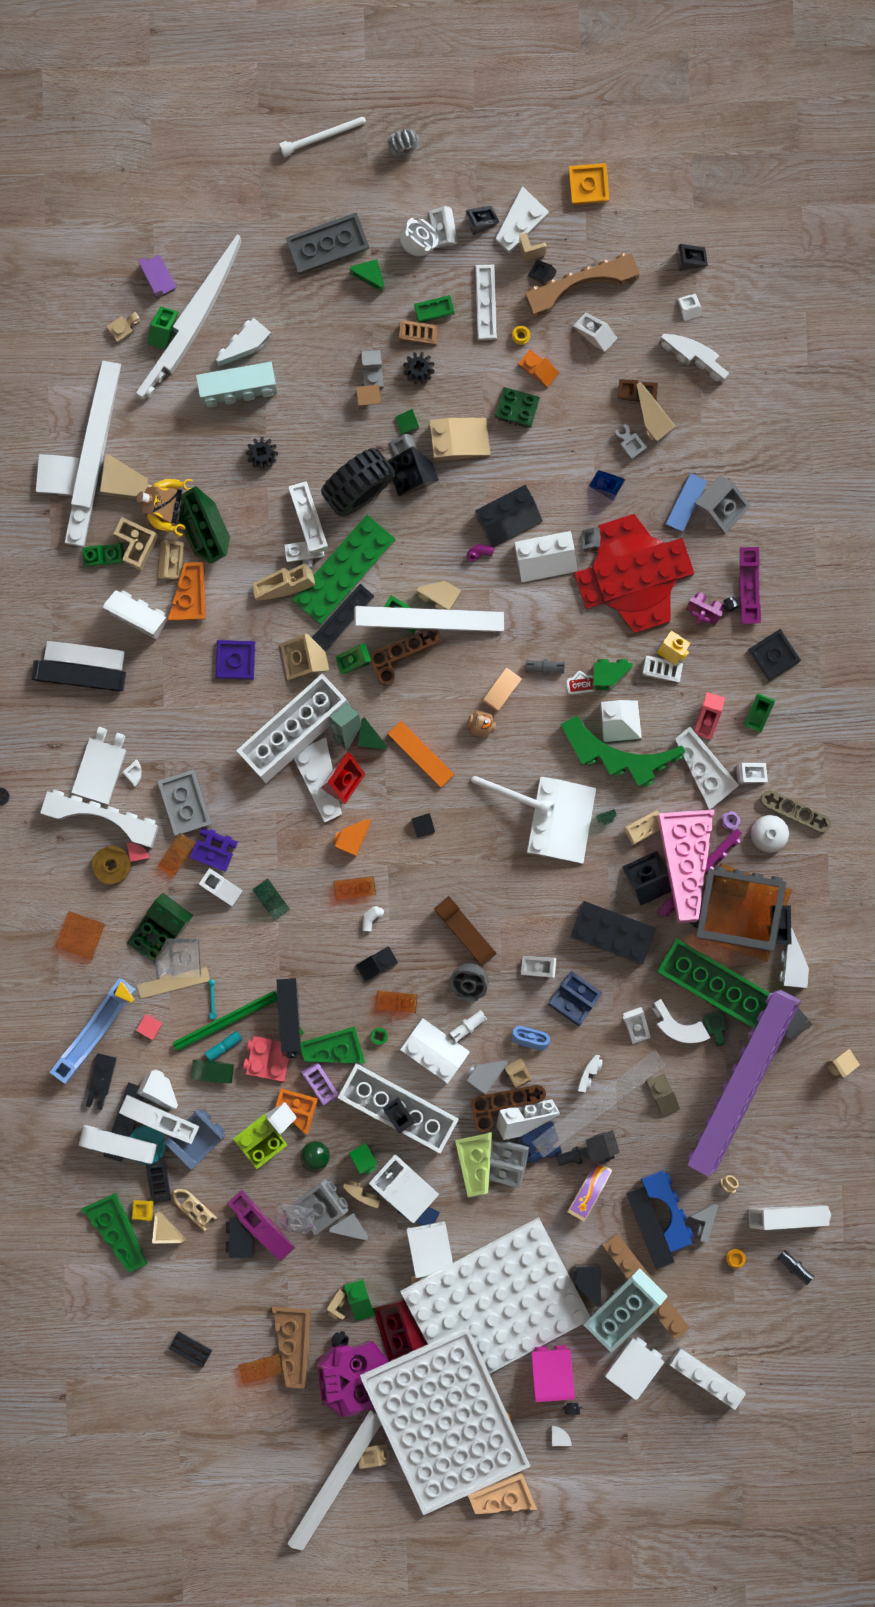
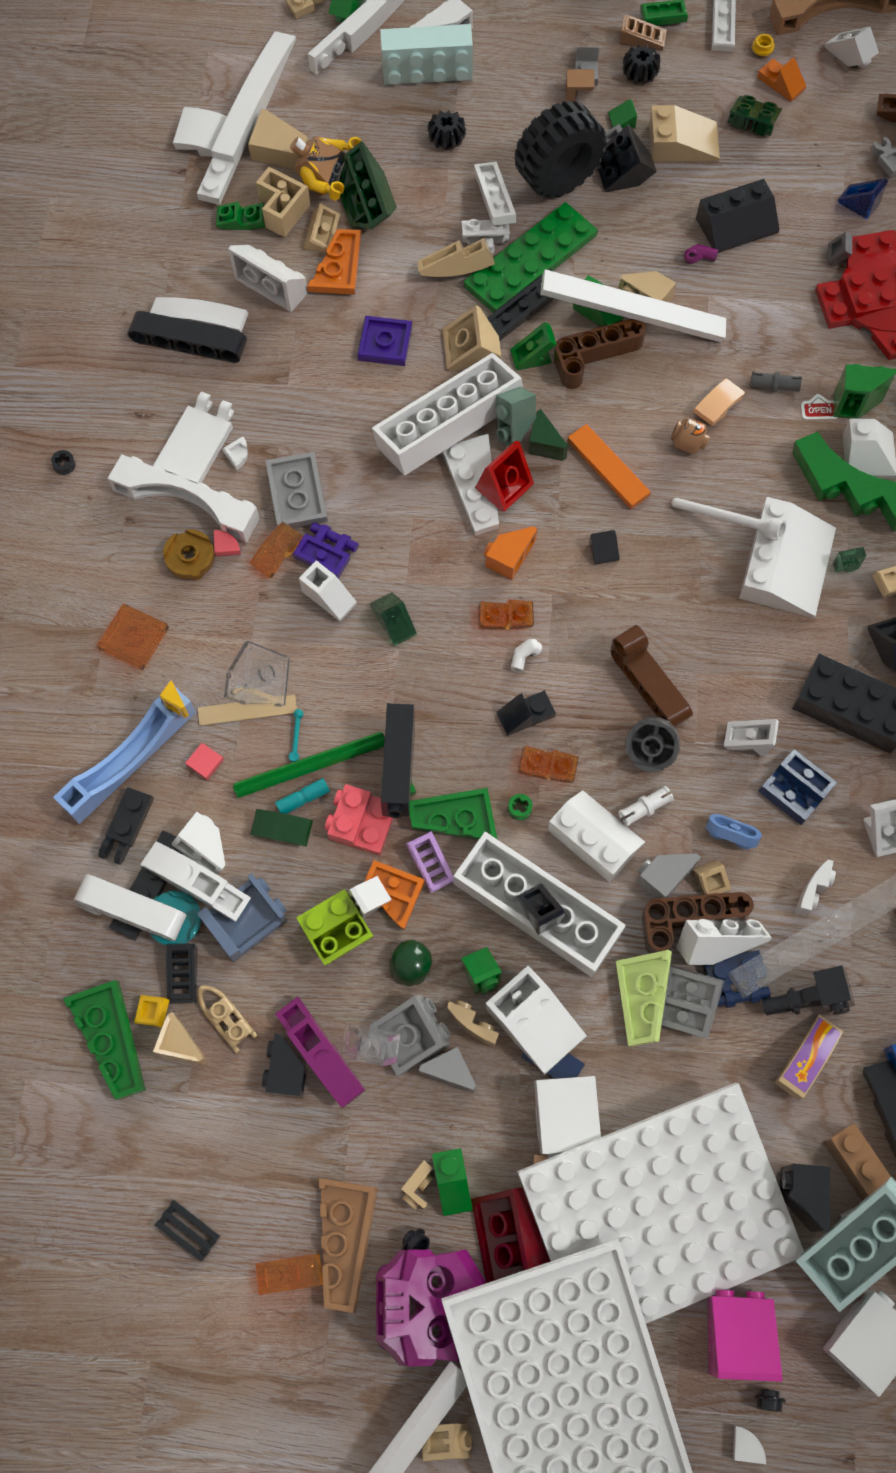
camera: 10 degrees right, 15 degrees down
(161, 922) = (239, 622): dark green slope -> none
(545, 556) = (782, 261): white slope -> none

